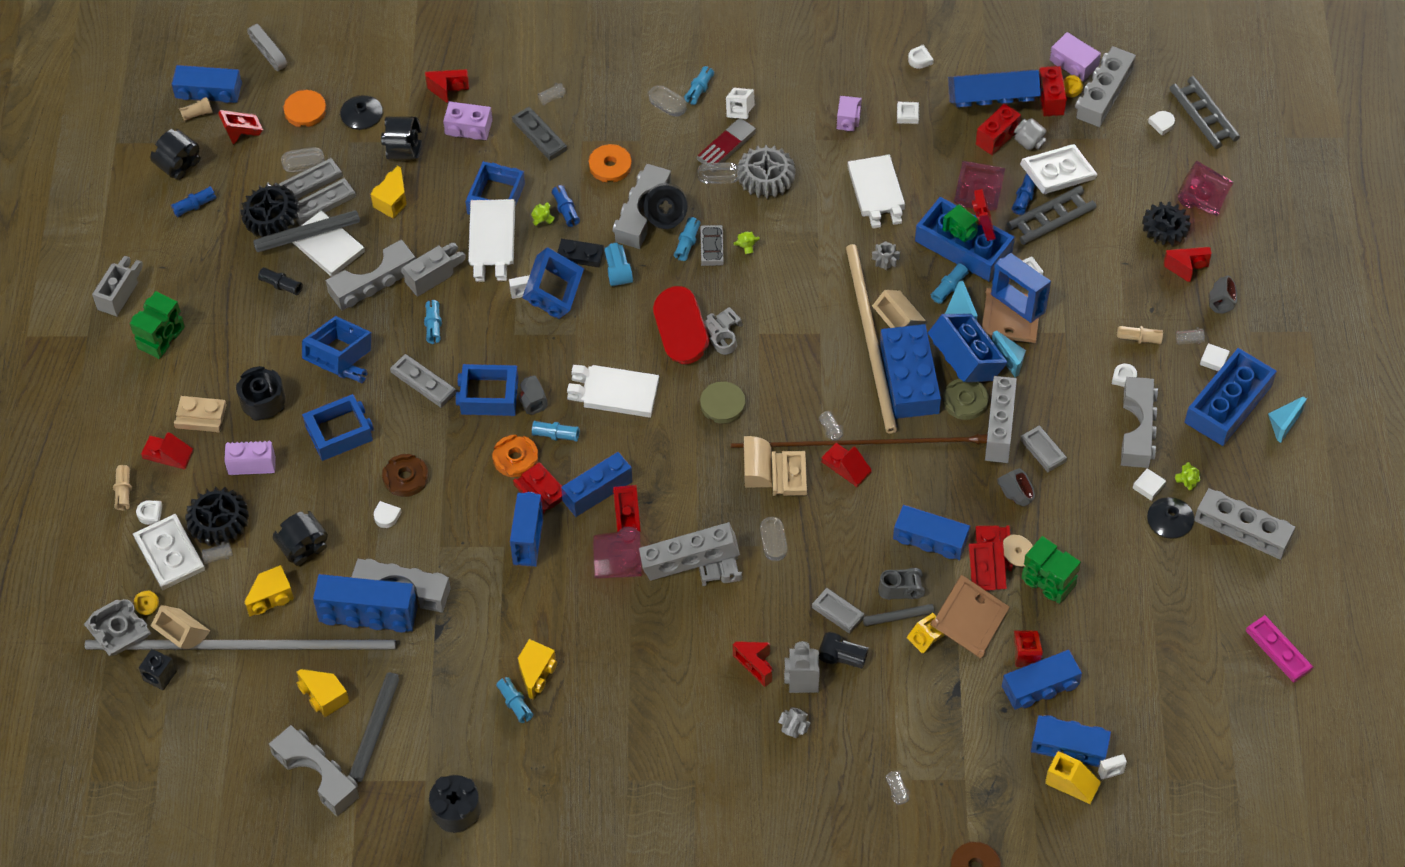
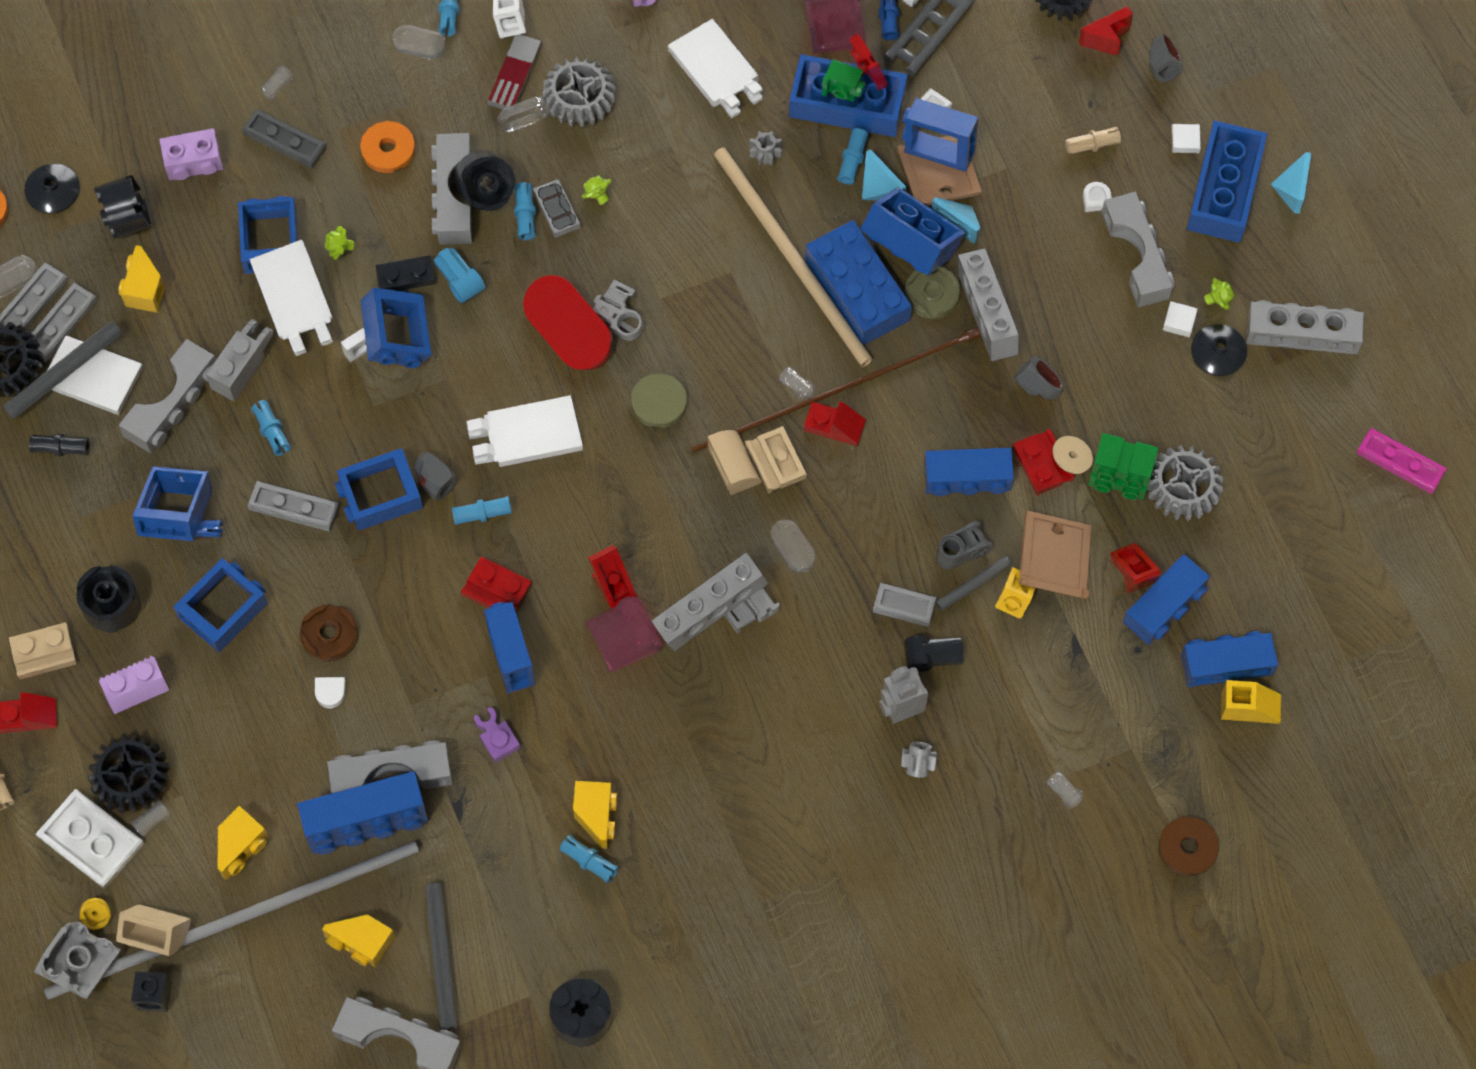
camera: 25 degrees left, 10 degrees up
(149, 512) = (41, 798): white tile -> none
(300, 537) = (245, 761): black brick -> none
(443, 81) = (134, 115): red slope -> none
(490, 591) = (497, 738): none -> medium lavender plate
(509, 445) = (453, 573): orange tile -> none
(565, 206) = (360, 221): blue pin -> none
(596, 484) = (562, 559): blue brick -> none
(752, 657) = (833, 701): red slope -> none
(897, 309) = (810, 213): tan brick -> none
(988, 565) = (1050, 487): red plate -> none
(1043, 448) = (1045, 320): light grey tile -> none
(1084, 606) = (1202, 472): none -> light grey gear
(1112, 766) = (1286, 672): white tile -> none
(1190, 336) = (1154, 120): clear pin -> none

